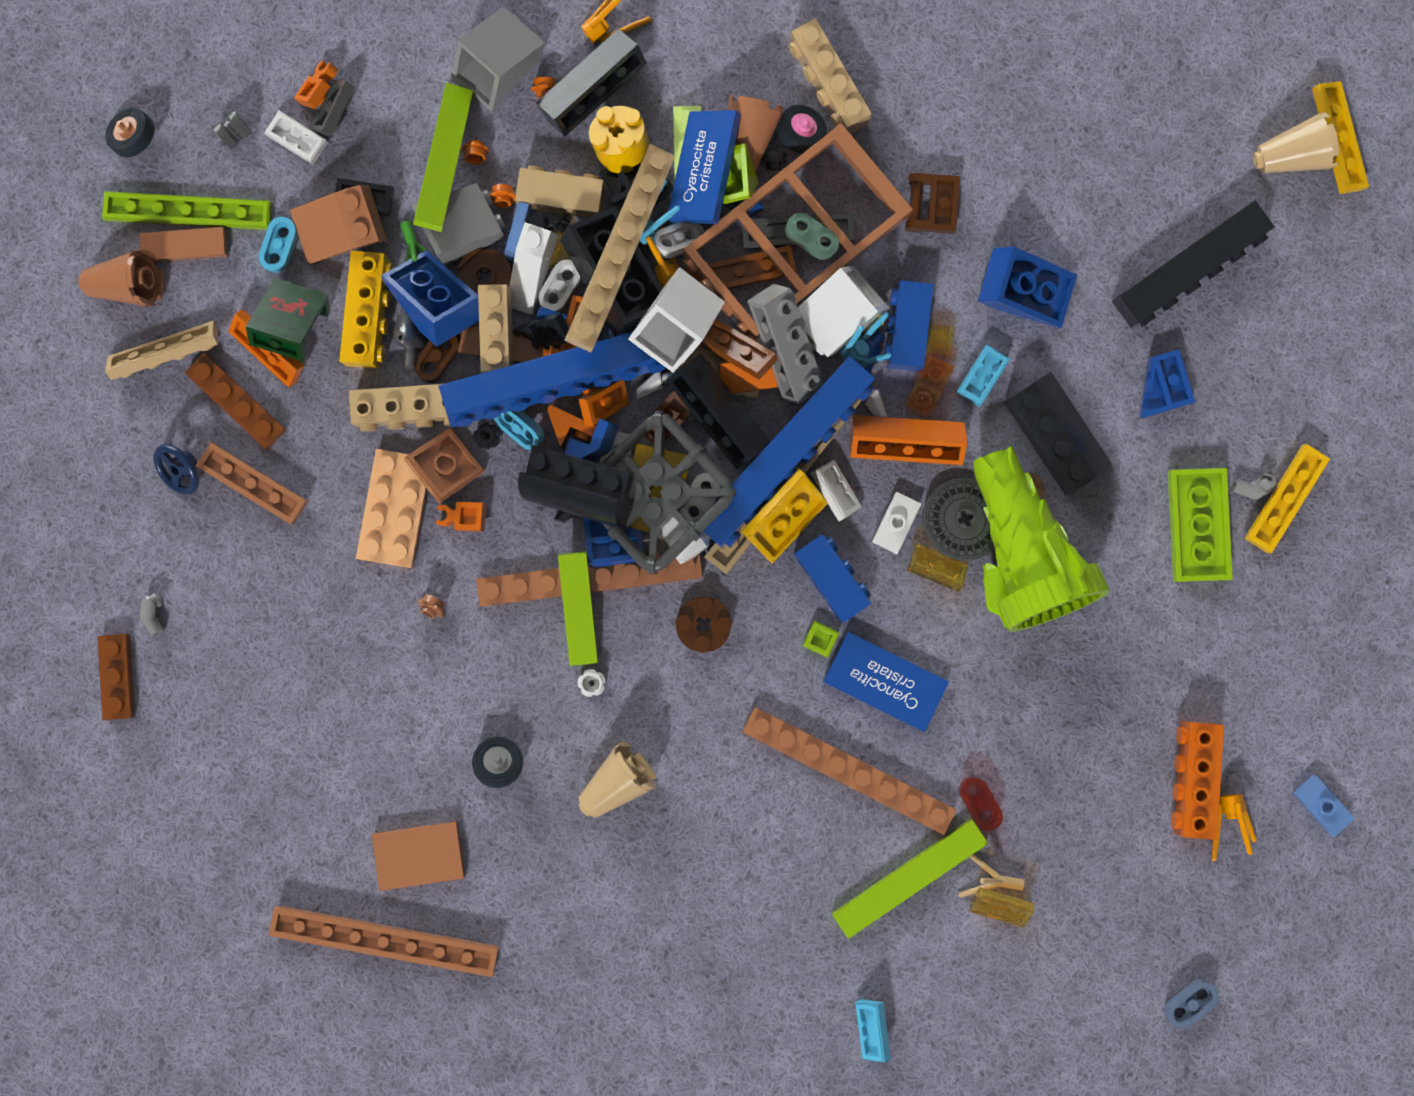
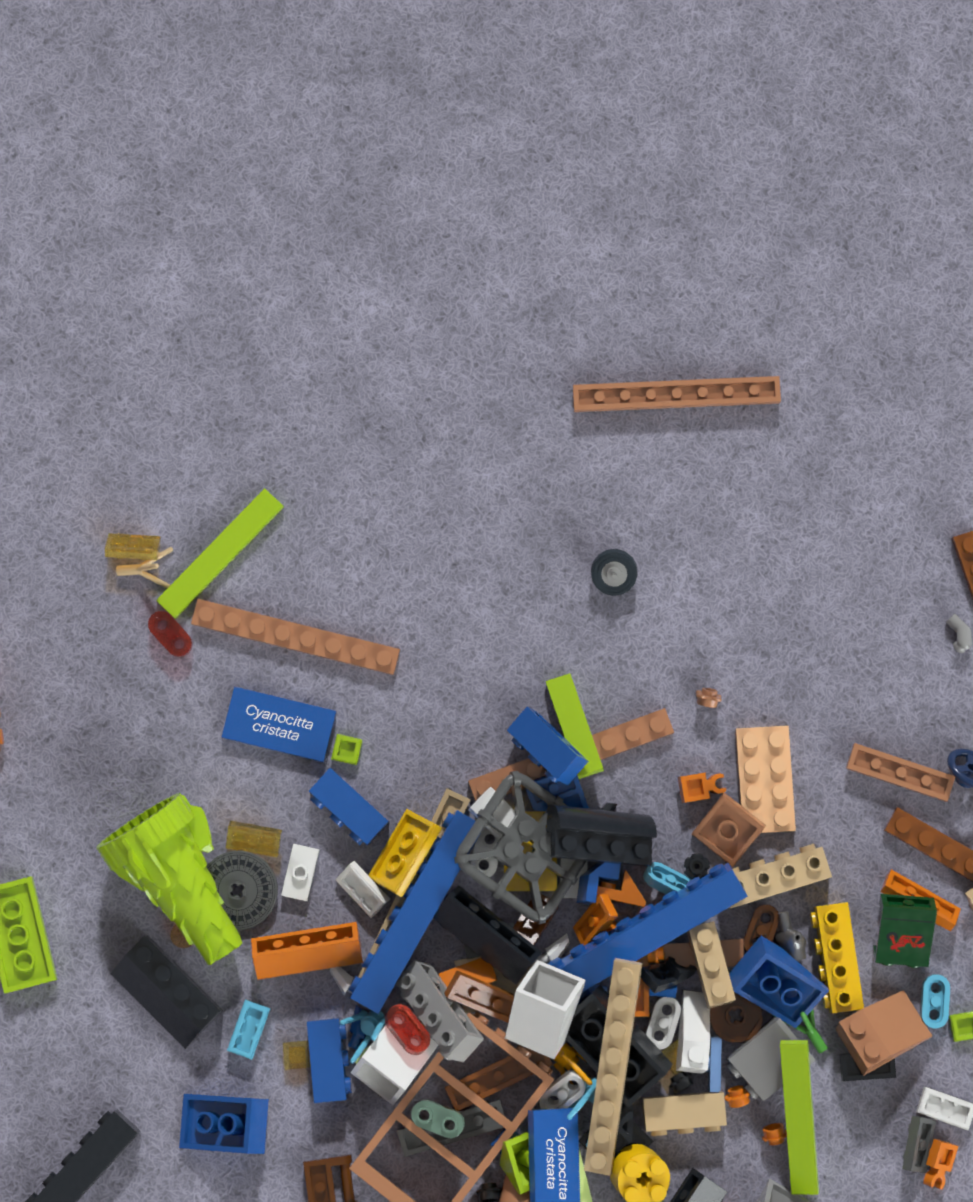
camera: 170 degrees right, 5 degrees down
(418, 855) = (665, 474): nougat tile -> none
(597, 688) = (549, 655): white plate -> none
(611, 592) = (546, 746): none -> blue brick
(617, 782) = (502, 579): tan cone -> none
(703, 608) = (456, 723): reddish brown plate -> none
(822, 331) = (409, 1029): none -> clear red plate
(873, 1030) = (225, 414): medium azure plate -> none
(929, 385) = (296, 1008): clear orange slope -> none
(1165, 385) = (75, 1059): blue wing -> none

